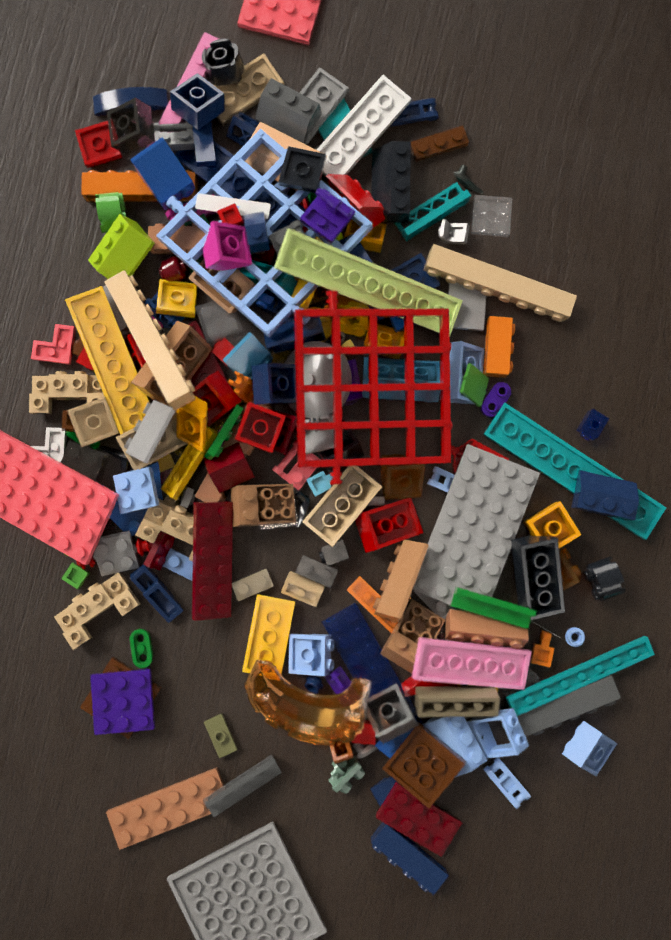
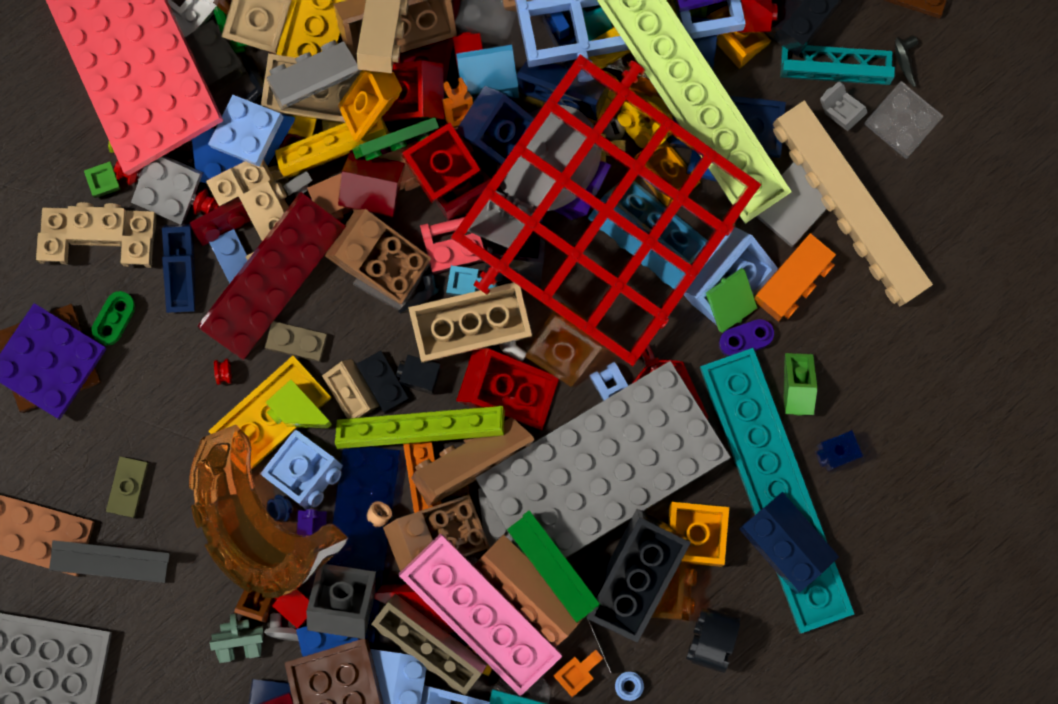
camera: 35 degrees right, 5 degrees down
(224, 632) = (222, 371): none -> red bush
(282, 624) = (295, 408): none -> lime slope
(358, 582) = (420, 427): none -> lime tile
(372, 643) = (381, 508): none -> light nougat hinge
(544, 403) = (799, 384): none -> bright green slope

